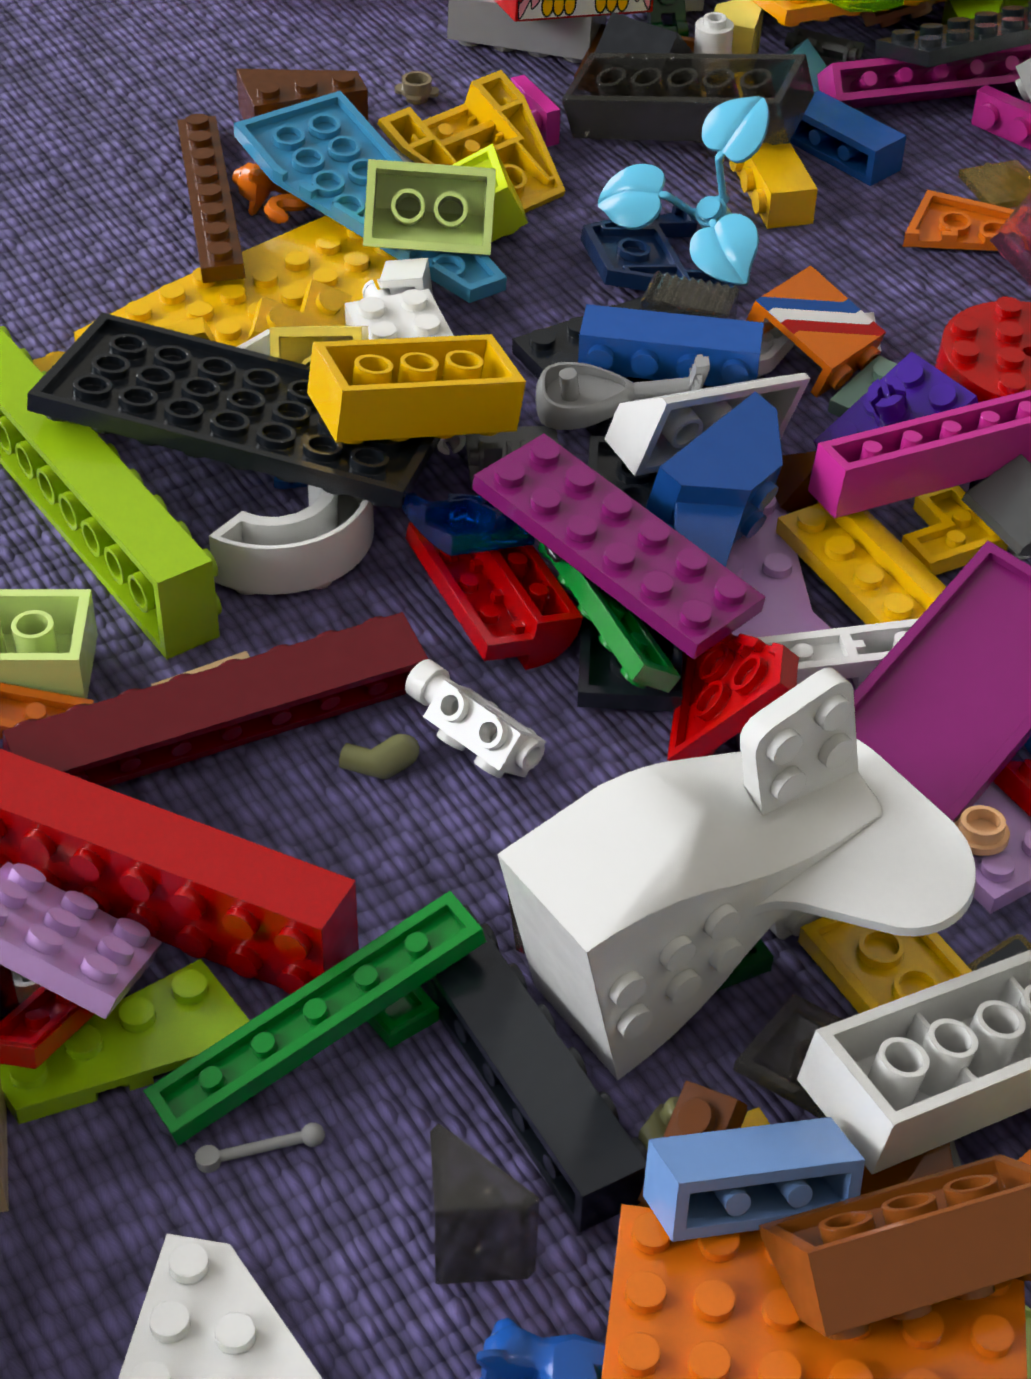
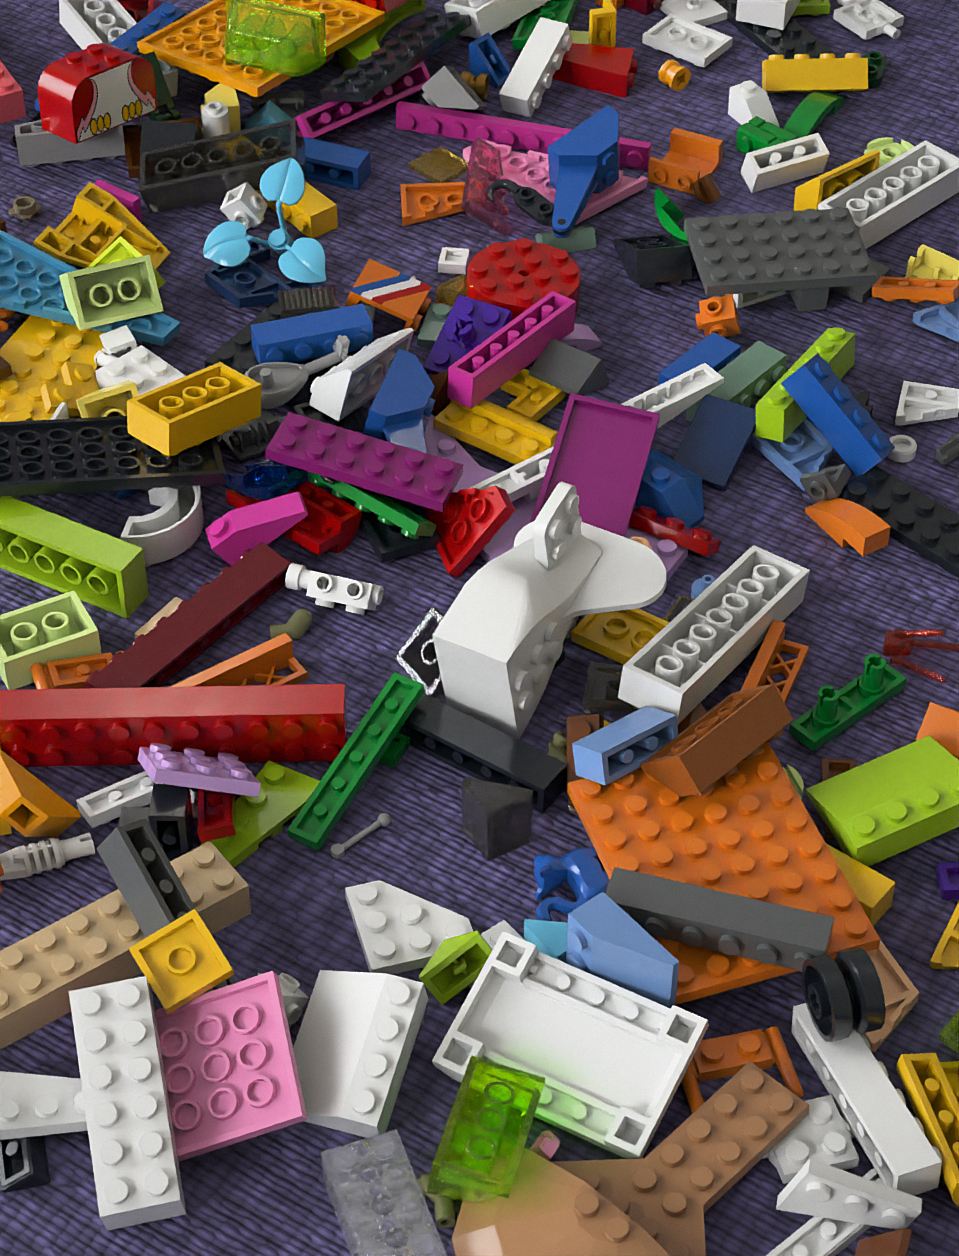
camera: 25 degrees left, 0 degrees up
(255, 798) = (252, 666): none -> orange fence
(410, 583) = (254, 524): none -> dark pink slope
(689, 161) = (244, 206): none -> white brick
(922, 342) = (449, 290): none -> clear yellow slope
(942, 307) = (454, 260): none -> white plate

